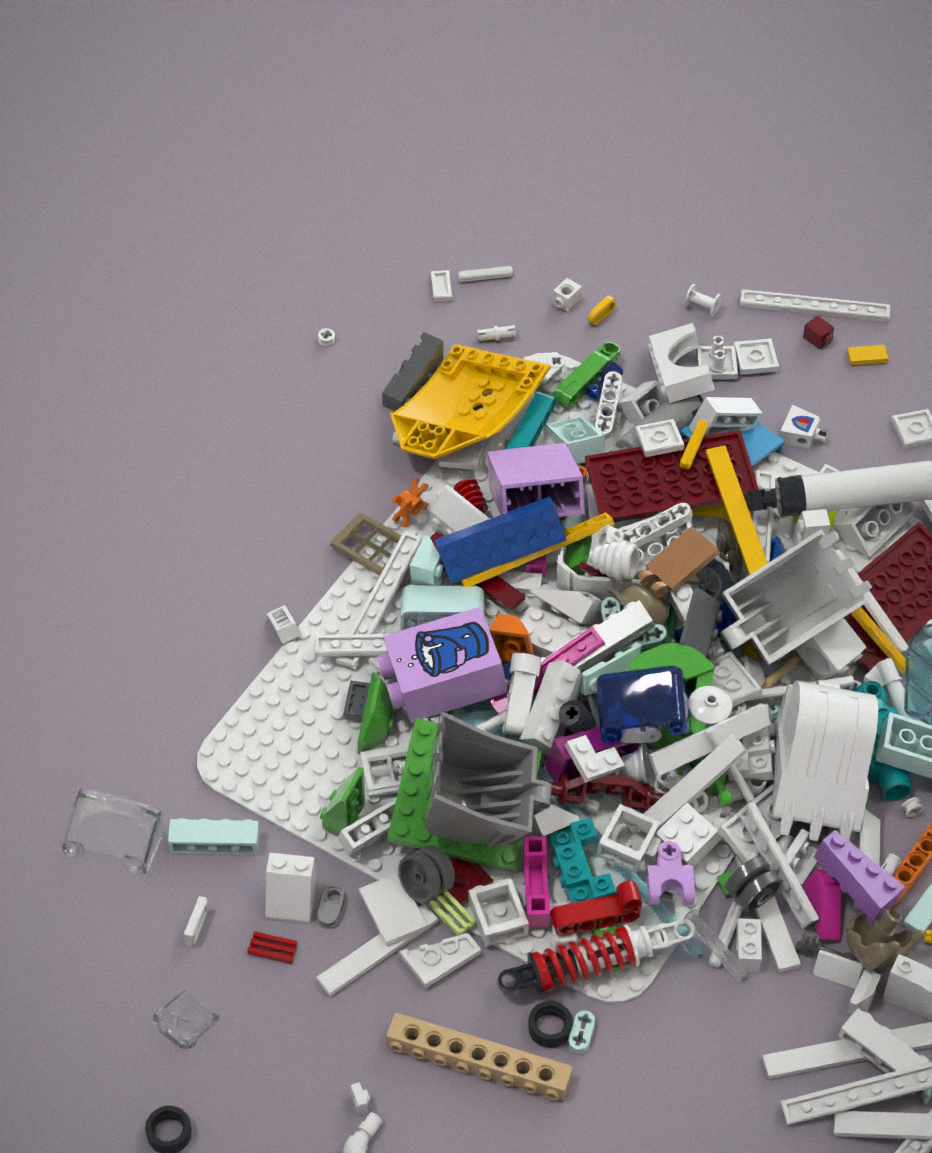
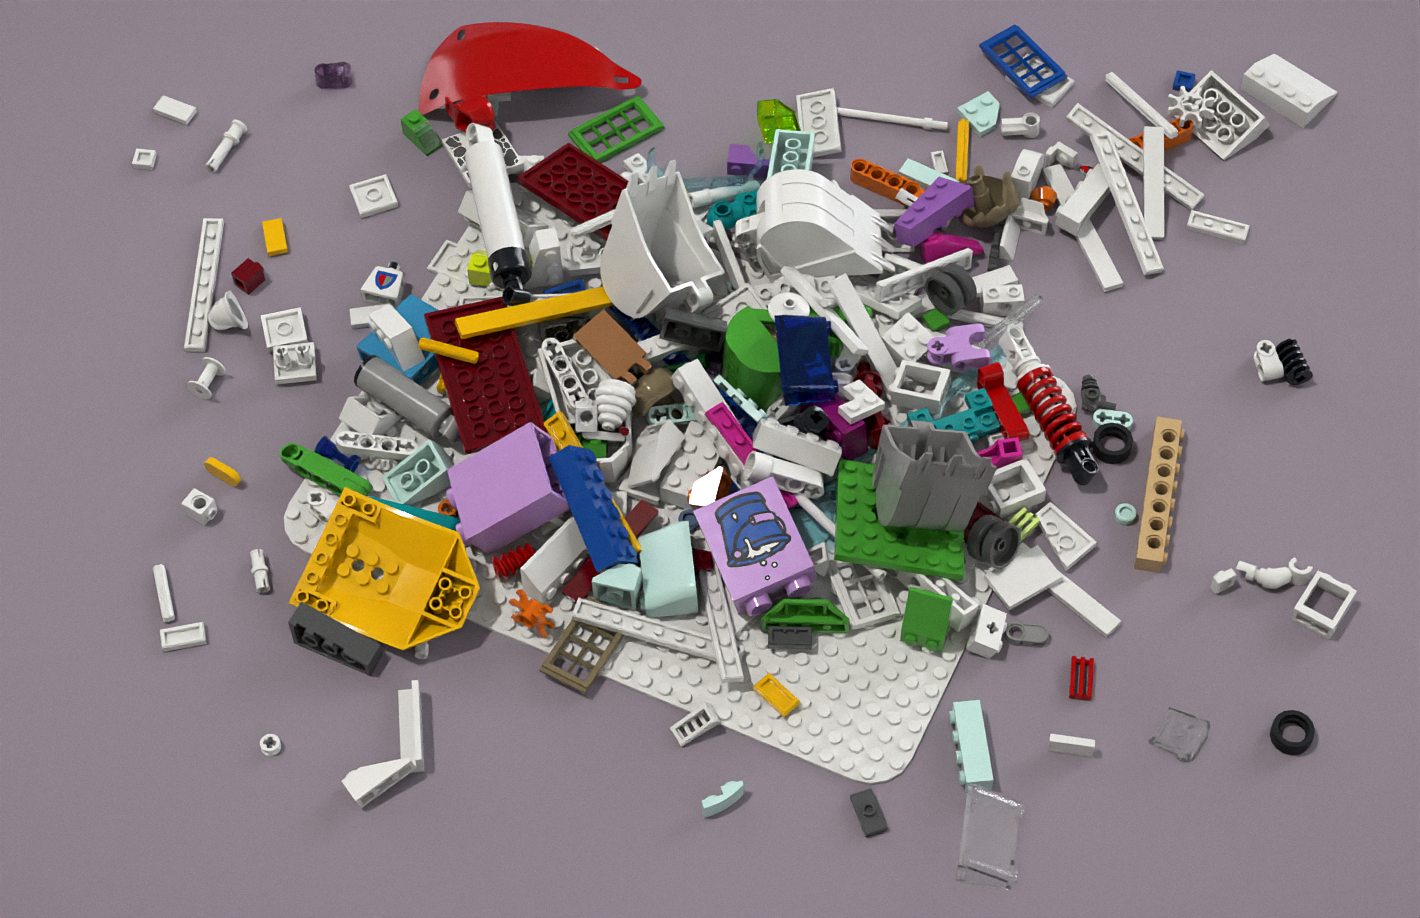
camera: 95 degrees left, 5 degrees up
(166, 747) = (868, 812): none -> dark grey plate
(203, 635) = (729, 795): none -> light aqua slope
(271, 392) = (373, 780): none -> white slope
(290, 888) = (1023, 662): white slope -> none
(299, 686) = (776, 695): none -> yellow tile
(320, 427) = (411, 725): none -> white fence
(348, 866) = (987, 631): none -> white brick
(461, 1022) = (1125, 514): none -> light aqua tile
(611, 1014) = (1091, 396): none -> dark grey piece
(659, 438) = (439, 382): white tile -> none
(675, 380) = (359, 371): white arch -> none
(770, 417) = (359, 316): none -> white tile
(775, 318) = (227, 313): none -> white piece
(892, 1011) = (1044, 195): none -> orange cone

